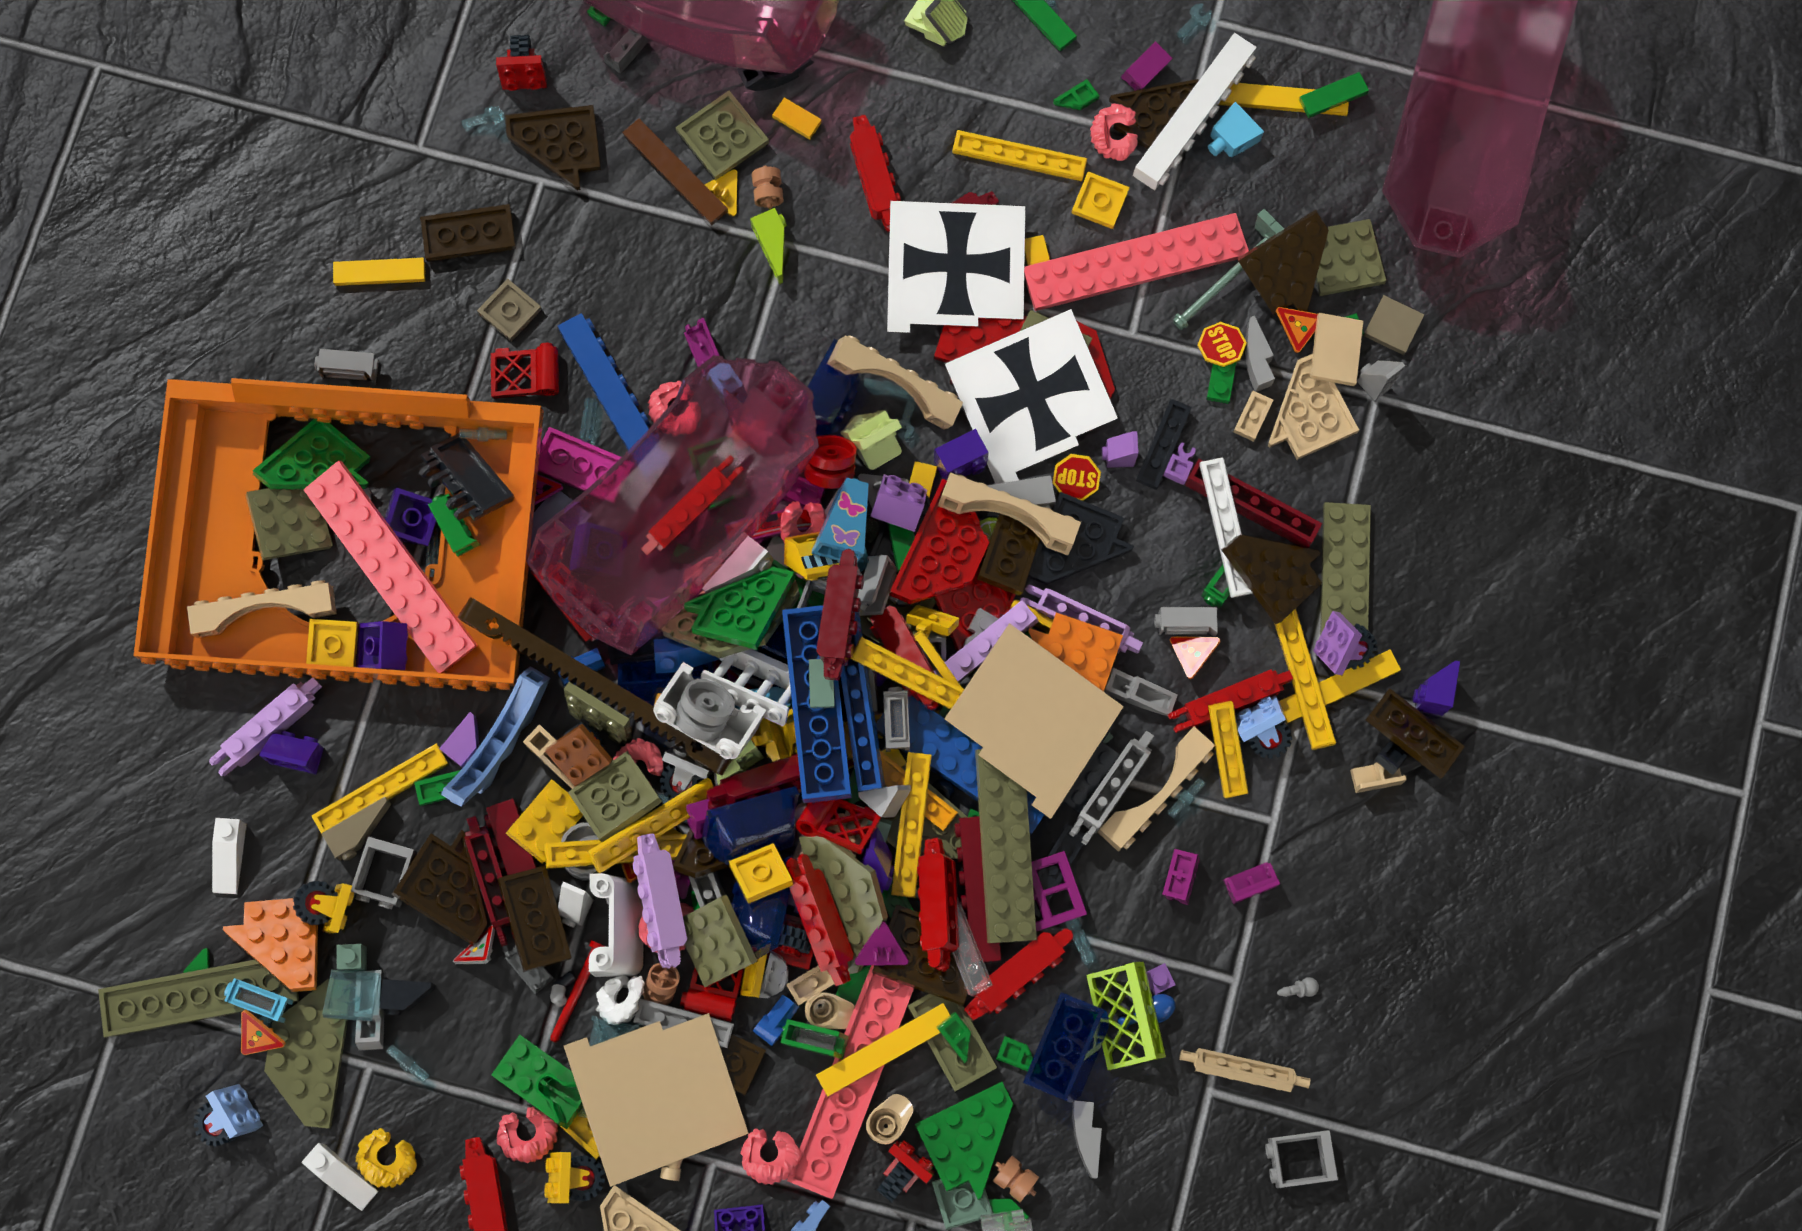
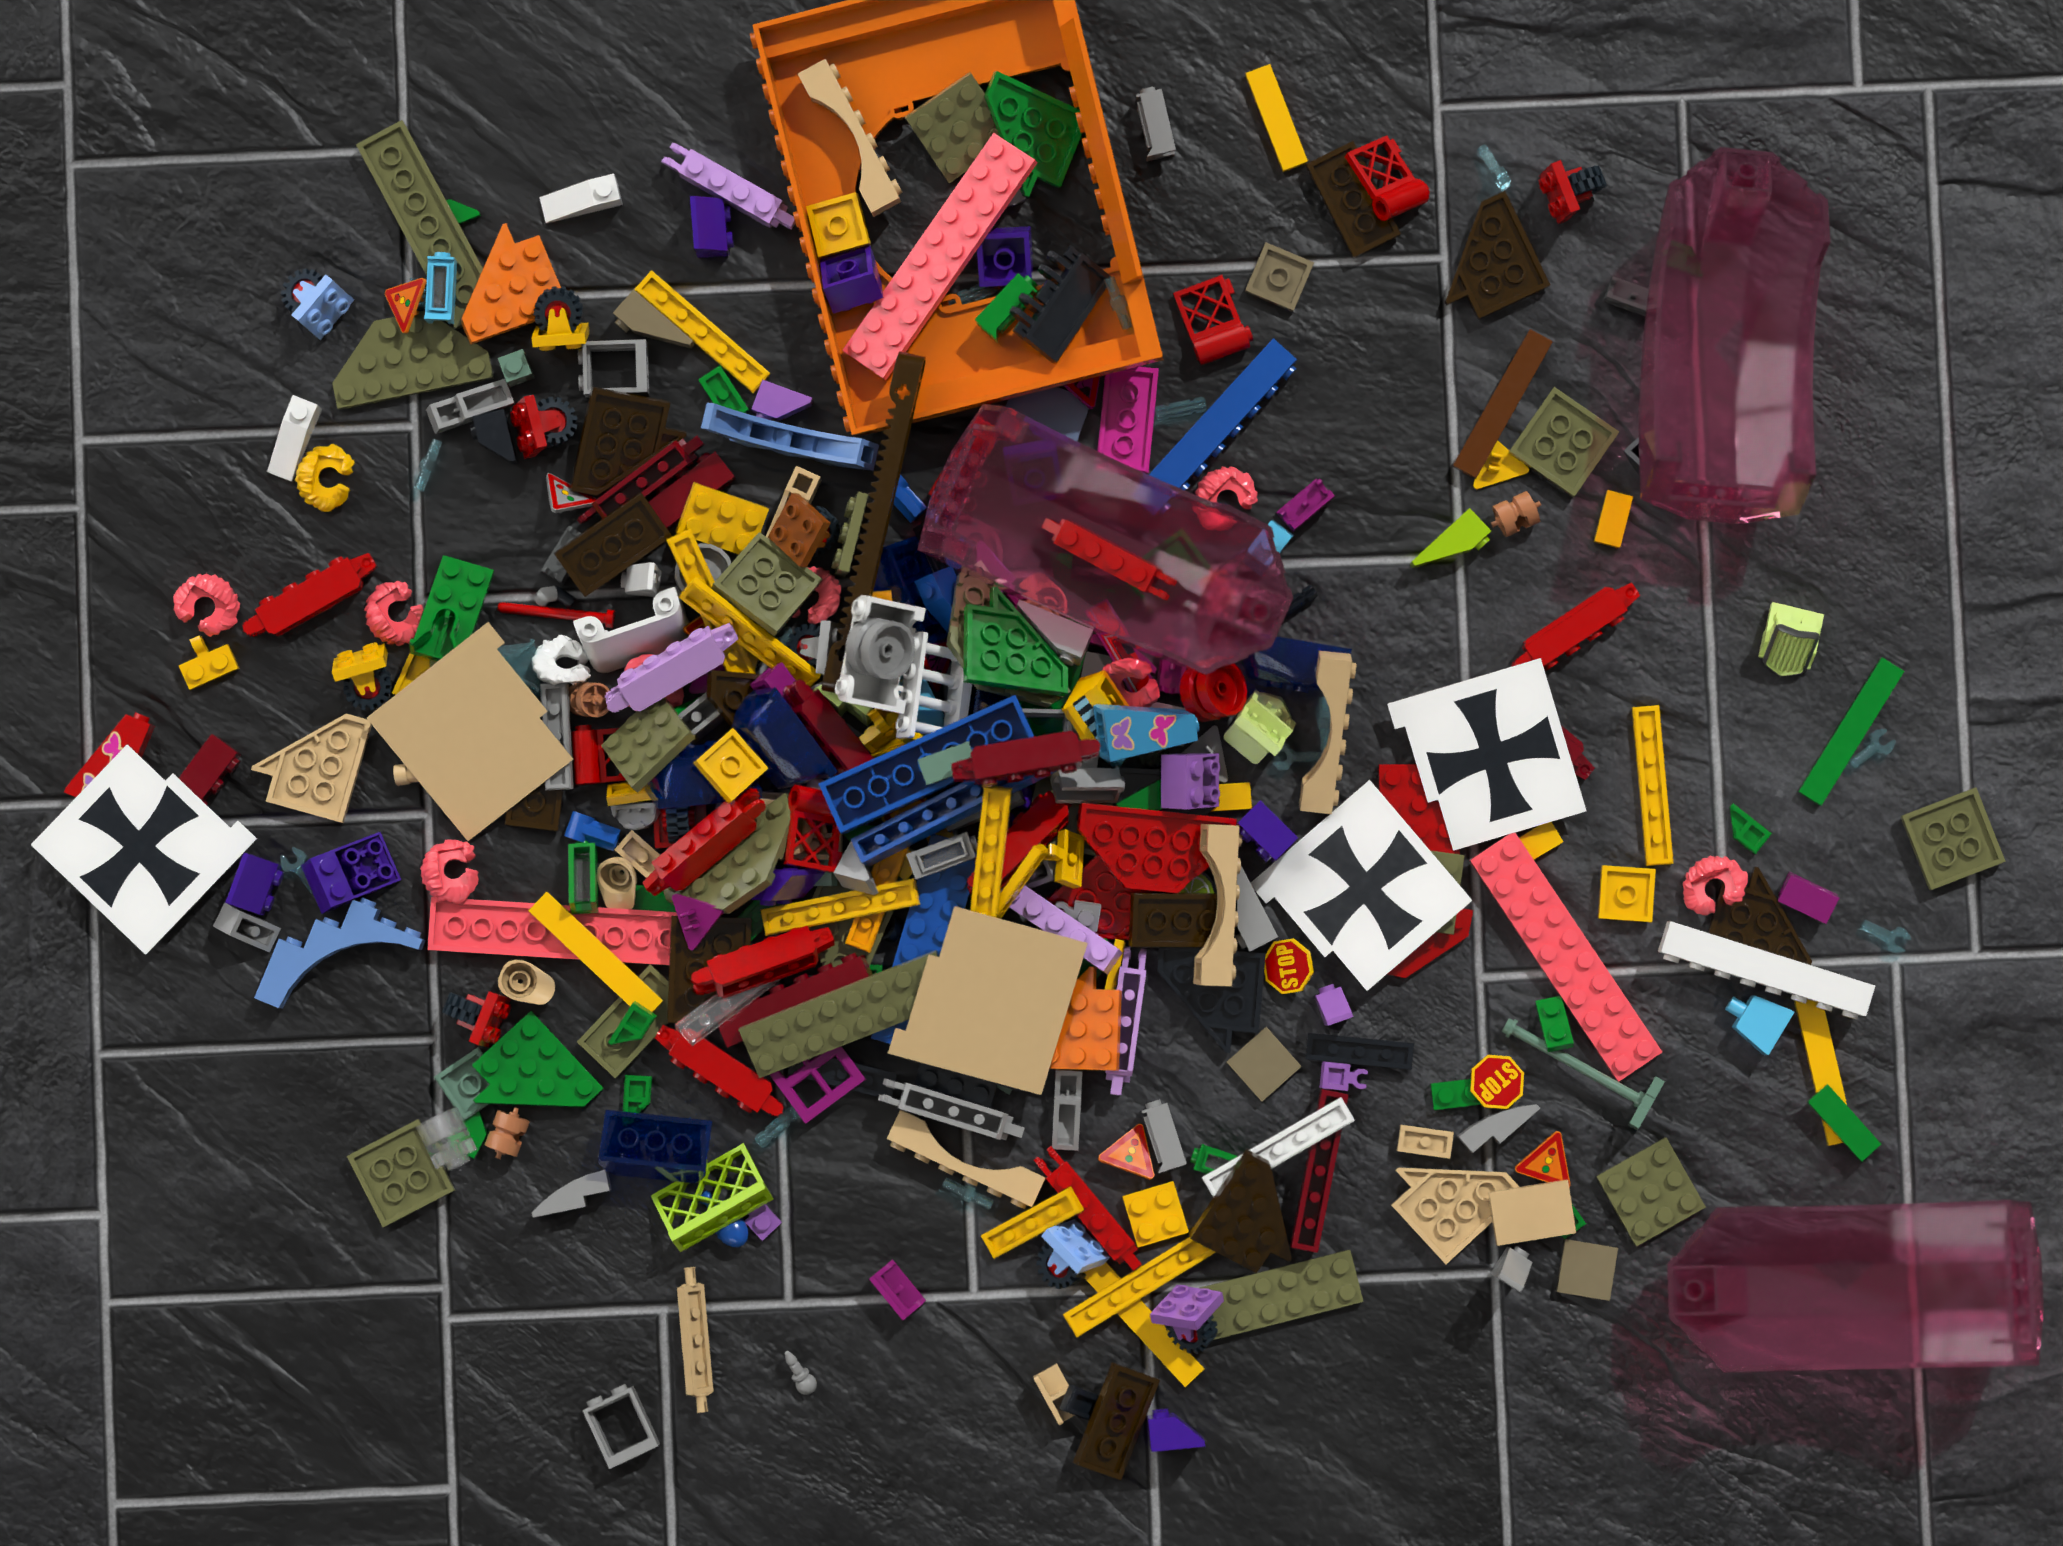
camera: 75 degrees right, 10 degrees up
(351, 995) = (476, 382): clear light blue tile -> none
(408, 951) = (542, 424): none -> red plate
(477, 197) = (1394, 197): none -> red piece
(1150, 523) = (1263, 1064): none -> dark tan tile
(1181, 876) = (879, 1212): magenta hinge -> none
(1188, 286) = (1554, 1024): none -> green plate
(1248, 649) = (1155, 1214): none -> yellow plate
(1288, 263) = (1609, 1127): dark brown wing -> none

